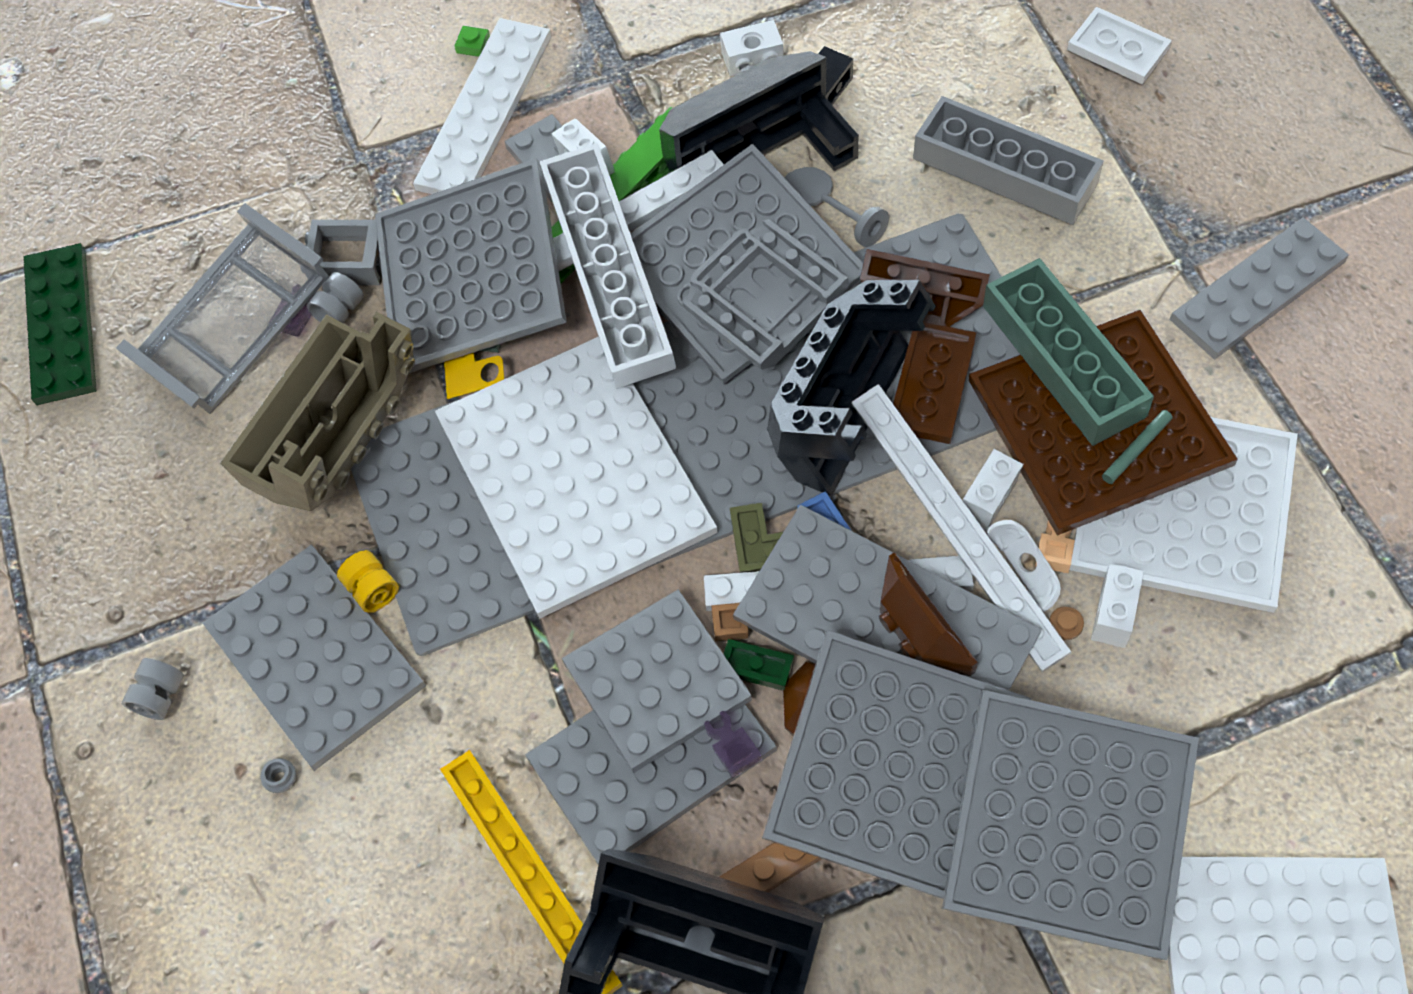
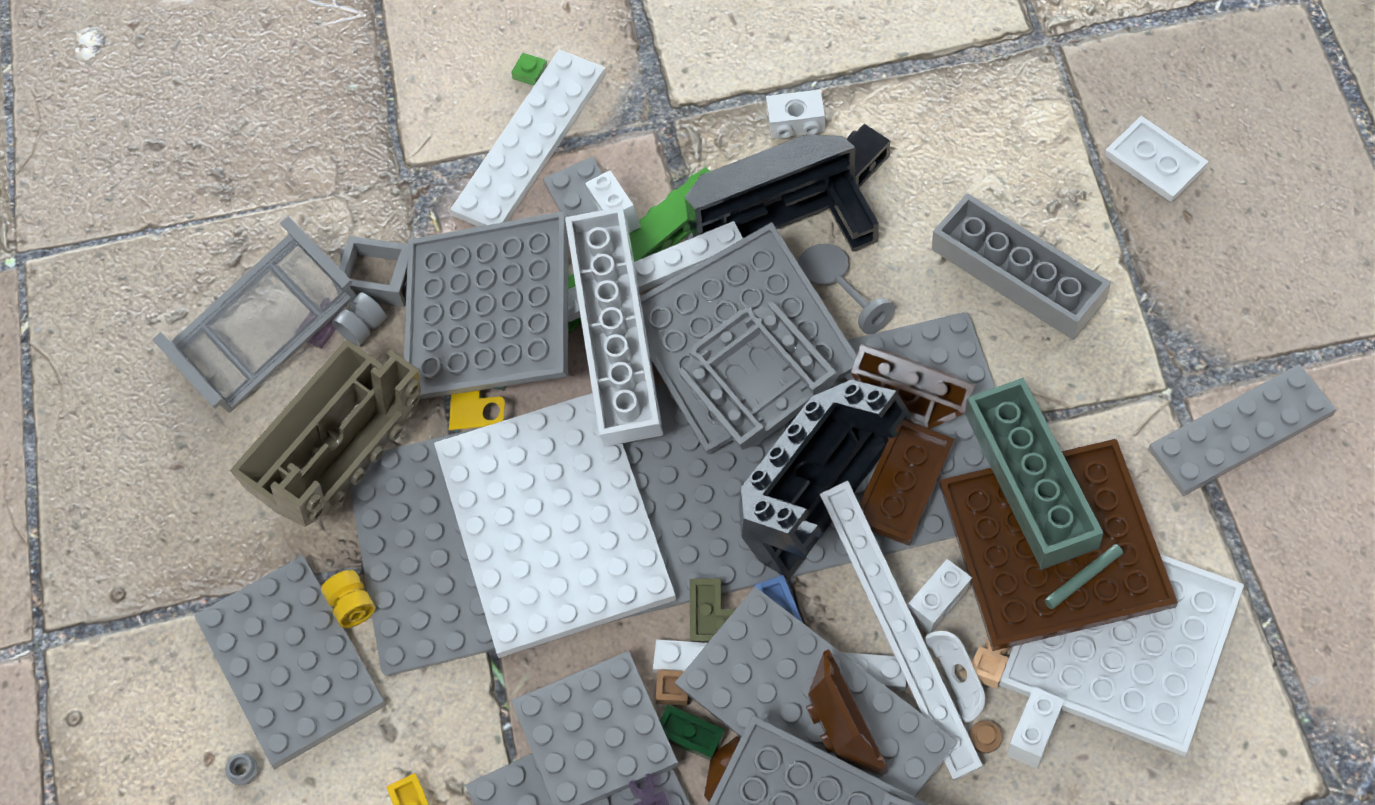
camera: 10 degrees right, 0 degrees up
(59, 324) = (104, 304): dark green plate -> none
(152, 691) = (140, 673): light grey wheel -> none

